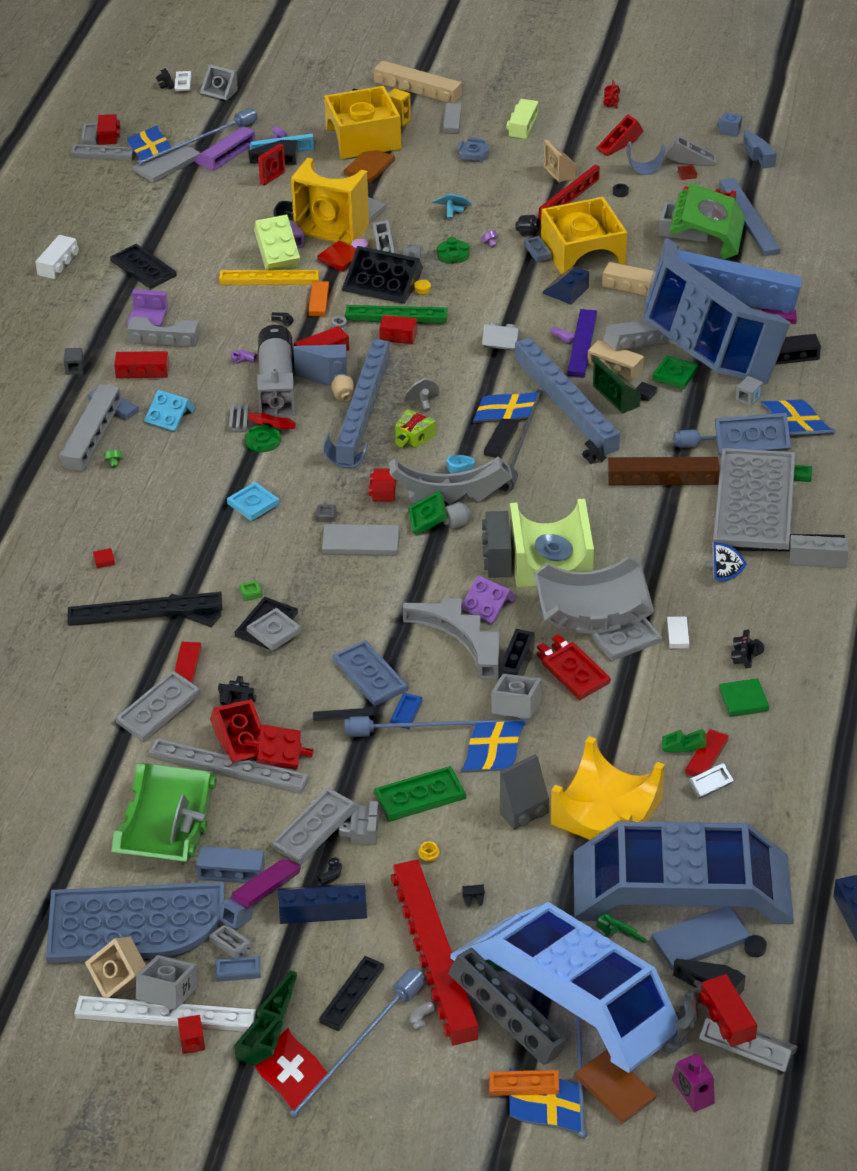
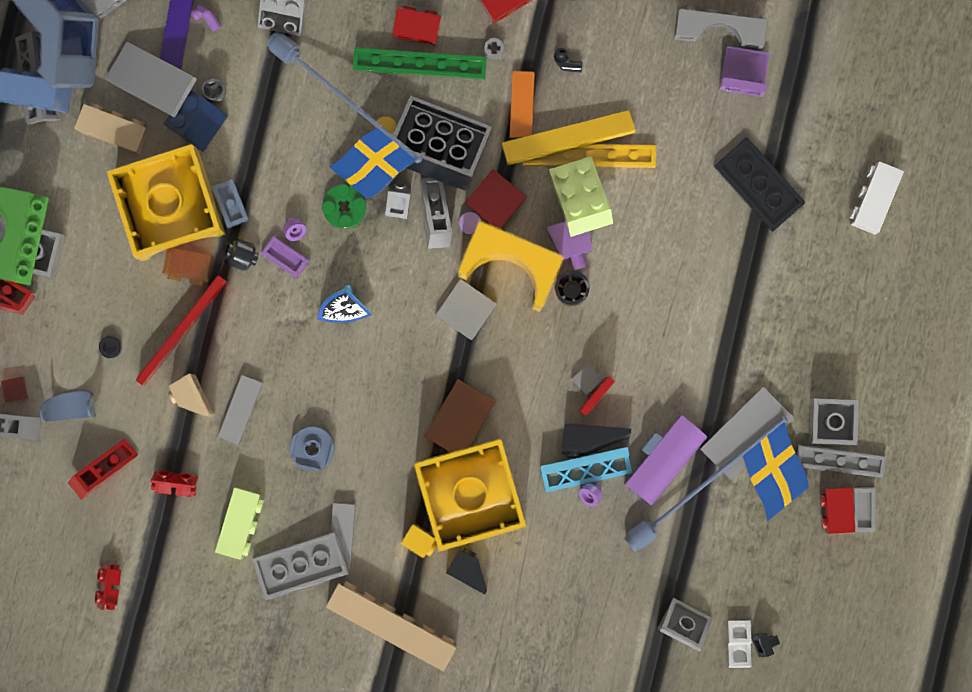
camera: 175 degrees right, 45 degrees up
(105, 159) = (833, 421): none -> light grey brick
(234, 153) = (651, 444): none -> sand blue tile
(278, 181) = (586, 379): none -> light grey tile
(284, 279) = (568, 137): none -> yellow tile
(434, 258) = (376, 156): none -> flag
(480, 104) = (300, 565): none -> light grey tile
(503, 231) = (285, 256): none -> medium lavender tile
(525, 166) = (240, 409): none -> light grey tile
(553, 297) = (211, 87): none -> dark grey wheel
(569, 134) = (184, 483): none -> red hinge
(601, 295) = (150, 79): none -> light grey tile

